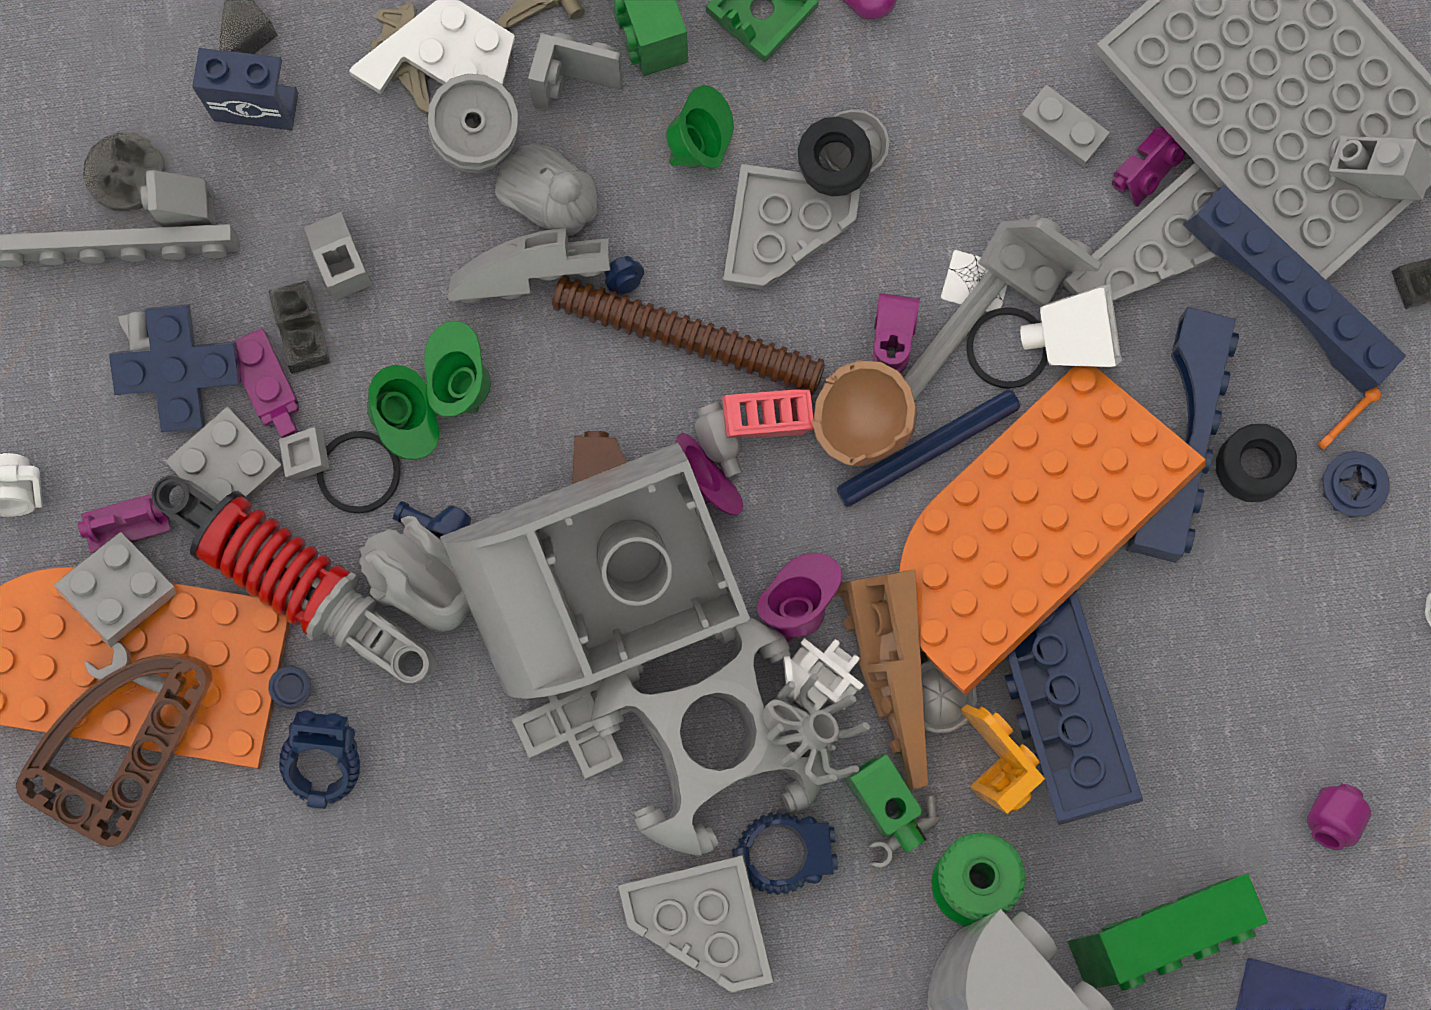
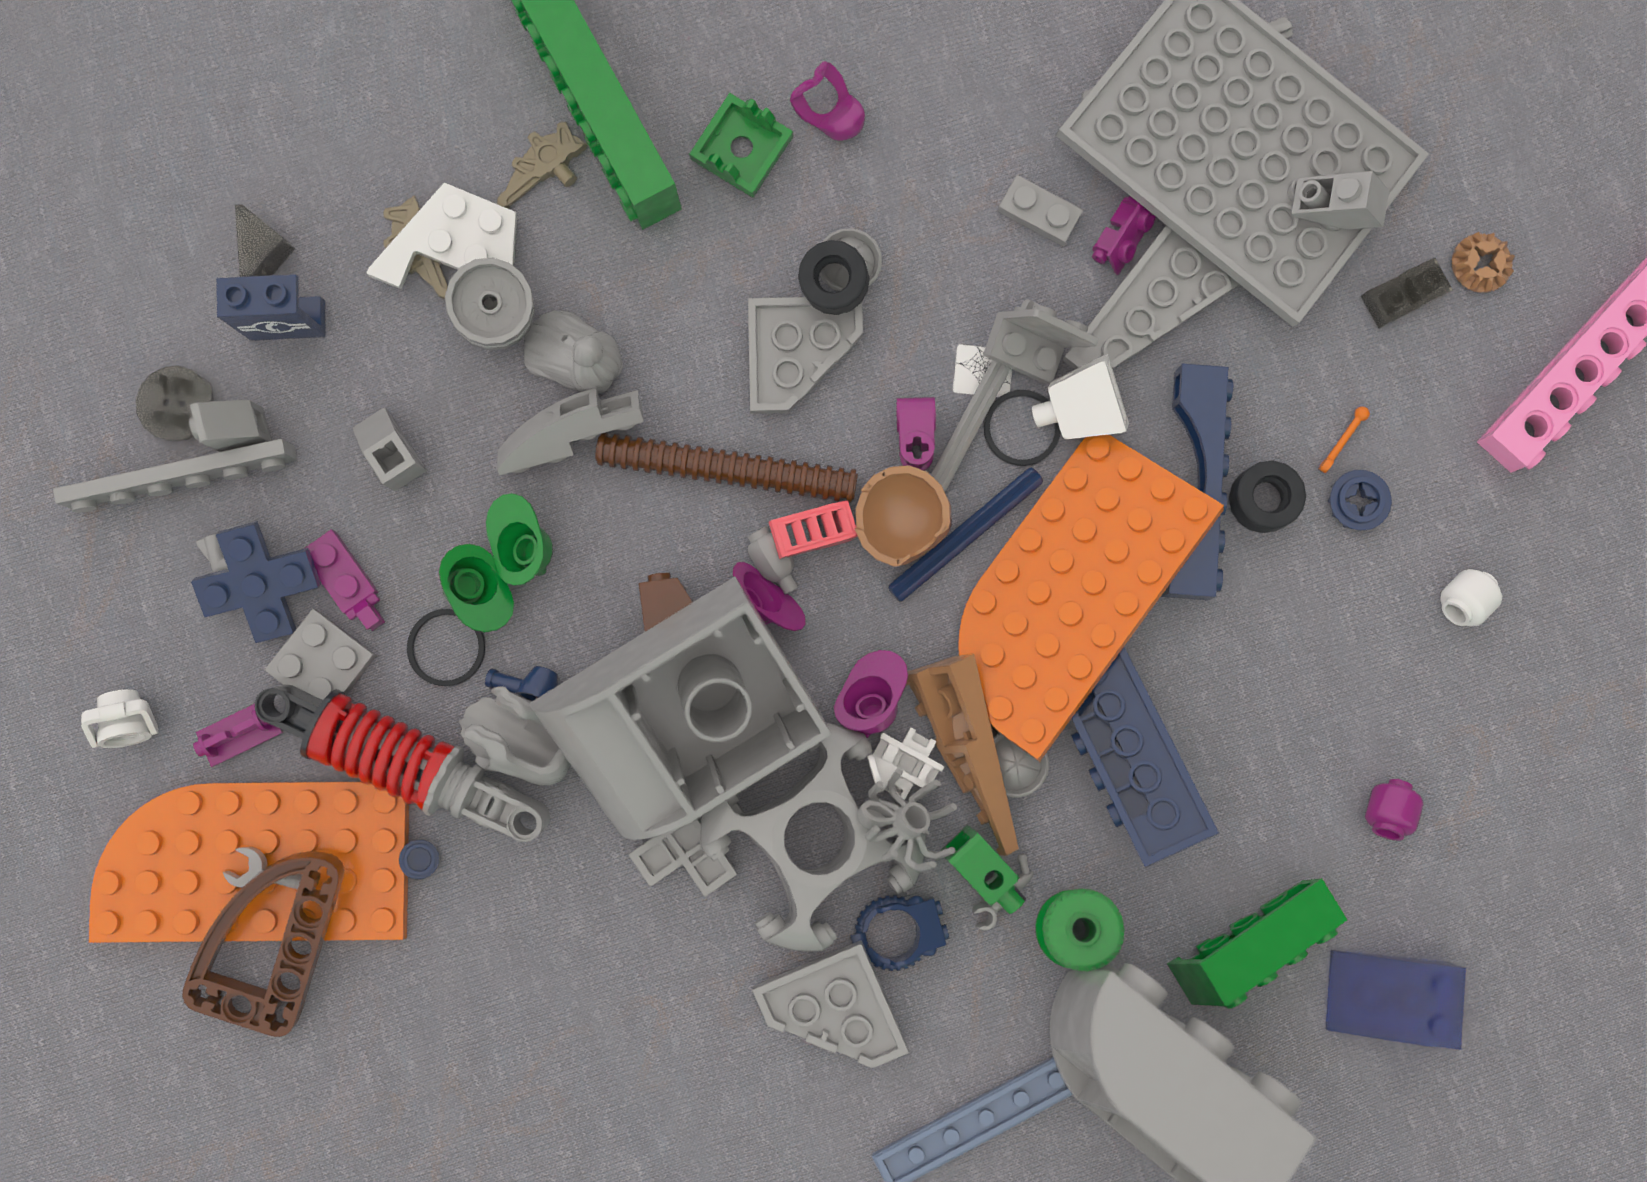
camera: 10 degrees left, 5 degrees up
(115, 589) = (239, 800): light grey plate -> none
(299, 326) = (366, 521): clear smoke slope -> none
(304, 453) = (391, 641): light grey plate -> none
(324, 733) = (461, 901): dark blue piece -> none
(565, 56) = (564, 224): light grey bracket -> none
(624, 275) = (657, 422): dark blue plate -> none
(701, 130) = (705, 273): green piece -> none
(1014, 775) = (1093, 828): light orange bracket -> none
(1340, 329) = (1229, 294): dark blue arch -> none

